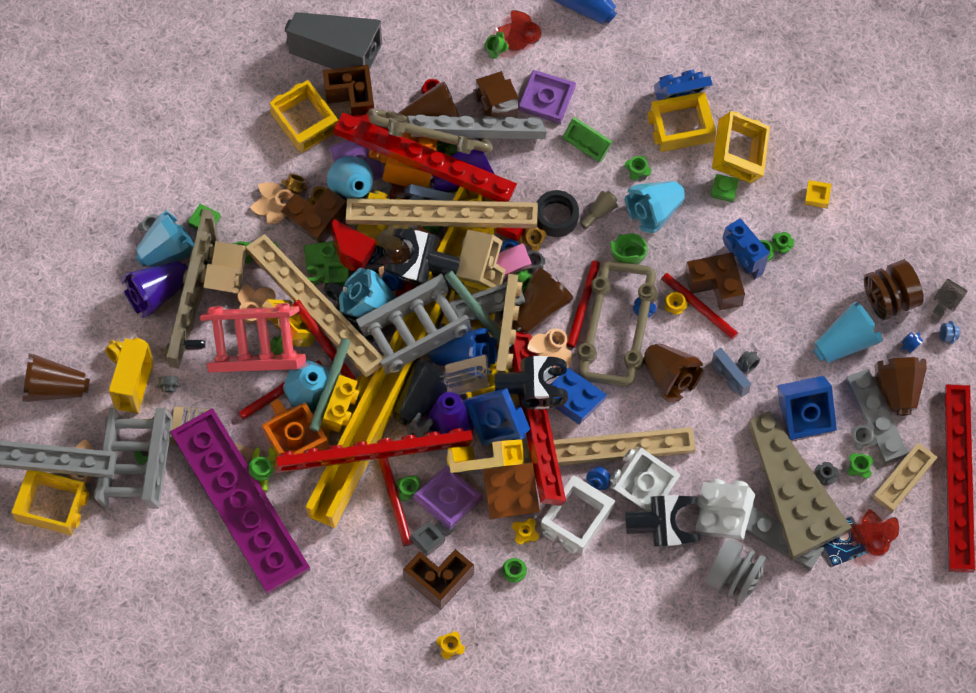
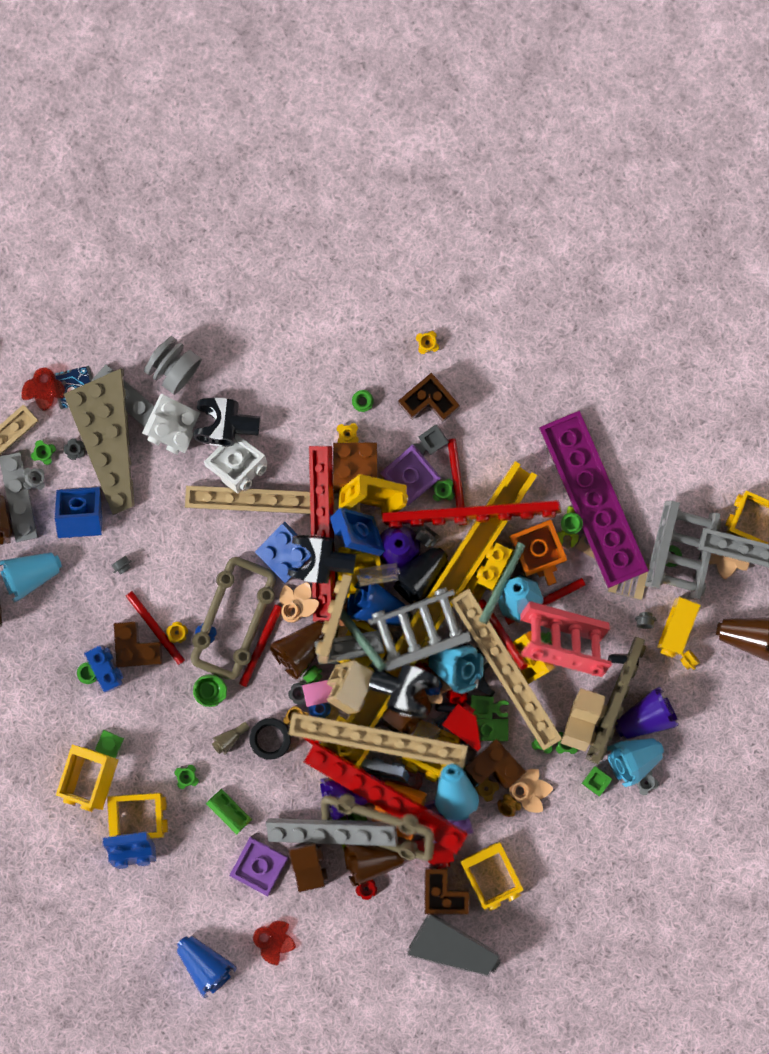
camera: 170 degrees left, 20 degrees up
(250, 298) = (555, 691): light nougat plate -> none
(496, 45) = (303, 927): bright green plate -> none
(592, 497) = (307, 413): white window -> none
(598, 478) = (275, 472): blue plate -> none
(654, 203) = (177, 732): medium azure cone -> none
(672, 370) = (193, 563): reddish brown cone -> none
(735, 378) = (144, 562): sand blue plate -> none
(778, 246) = (73, 678): bright green plate -> none
(818, 194) = (24, 723): yellow plate -> none

